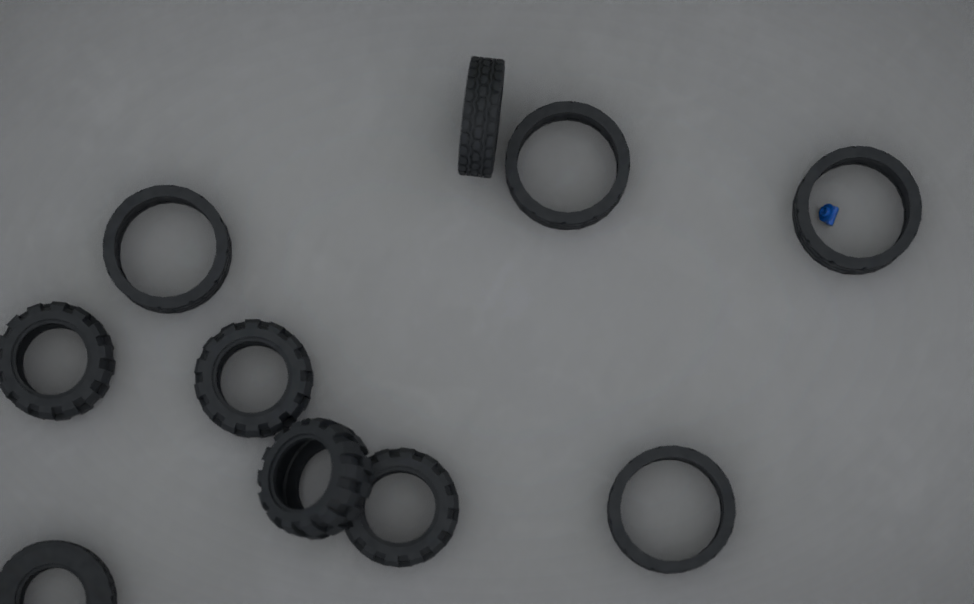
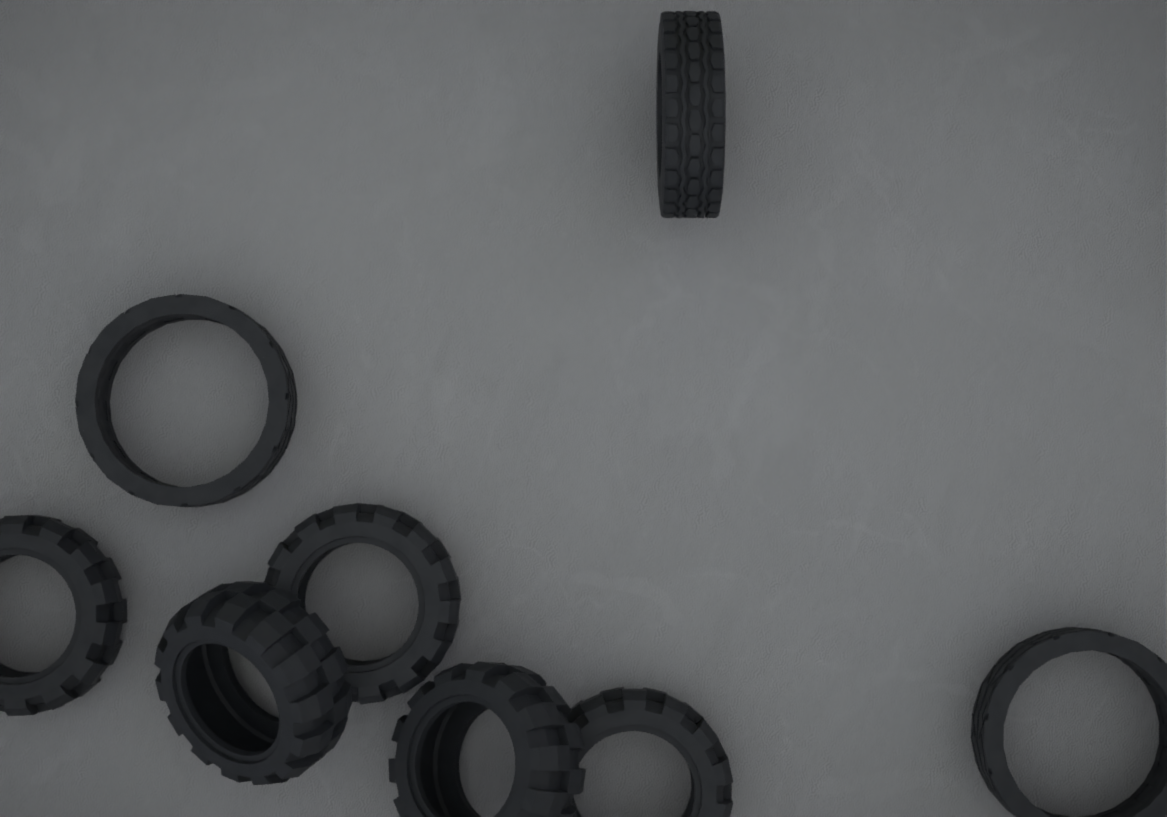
camera: 10 degrees left, 5 degrees up
(156, 422) = (289, 653): none -> black tyre
(580, 113) = (895, 106): black tyre -> none

